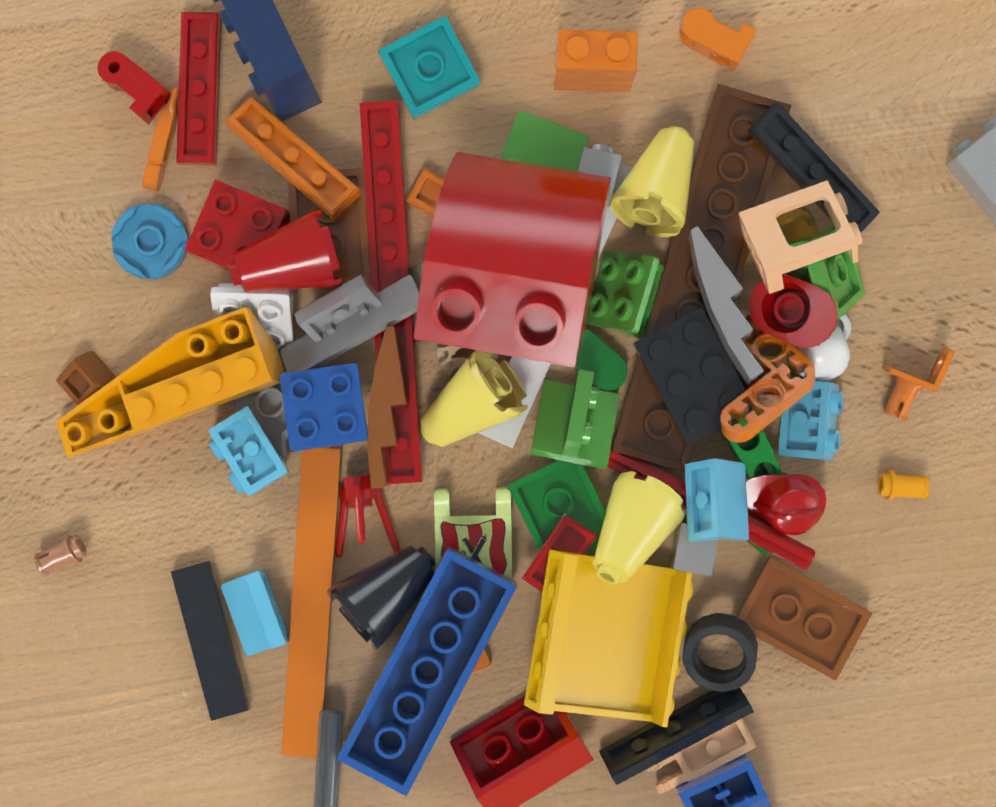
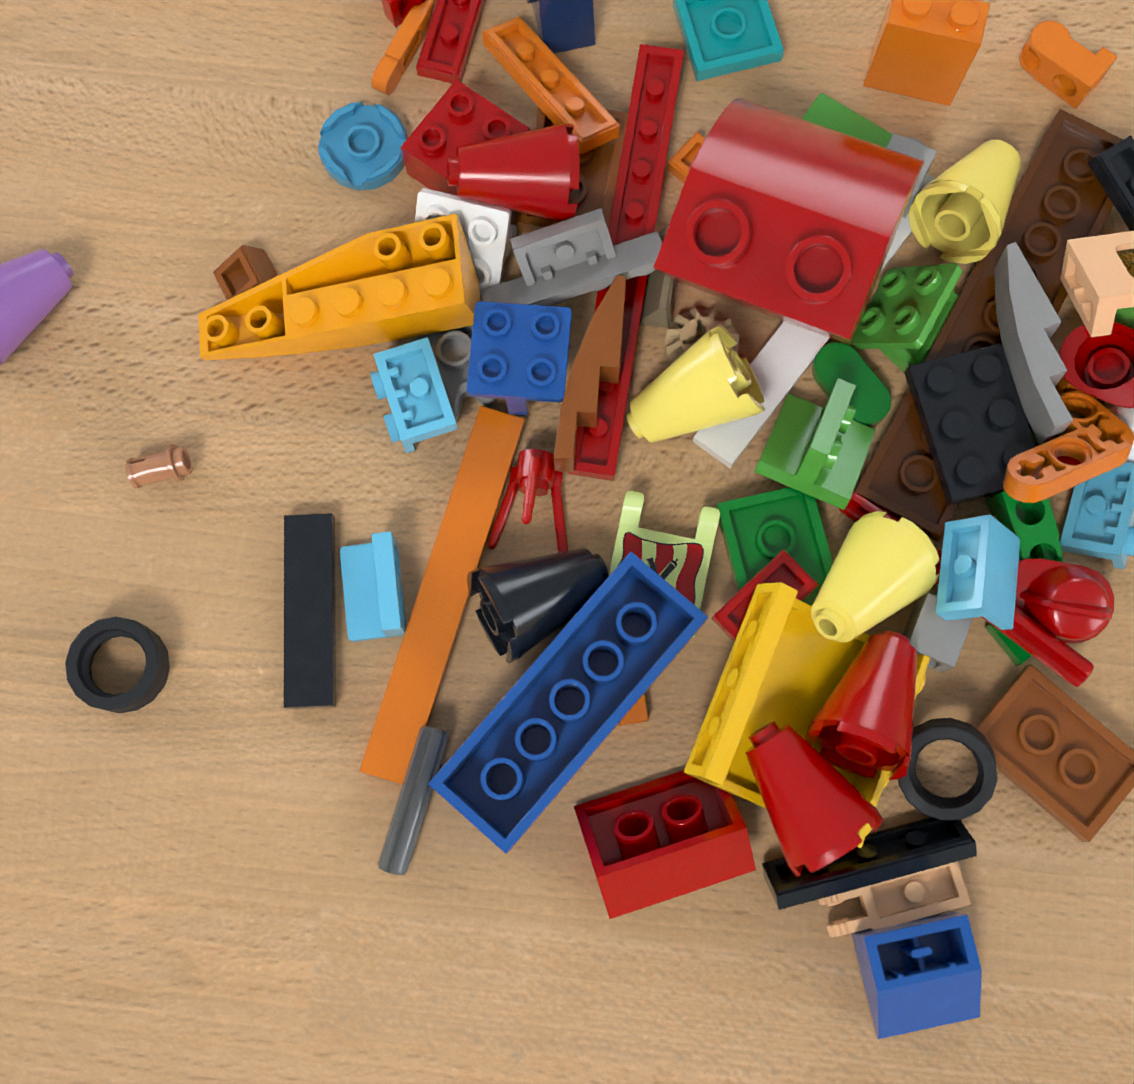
camera: 15 degrees right, 10 degrees down
(46, 729) = (88, 643): none -> black tyre
(618, 706) = (807, 799): none -> red cone
(653, 624) = (871, 710): none -> red cone

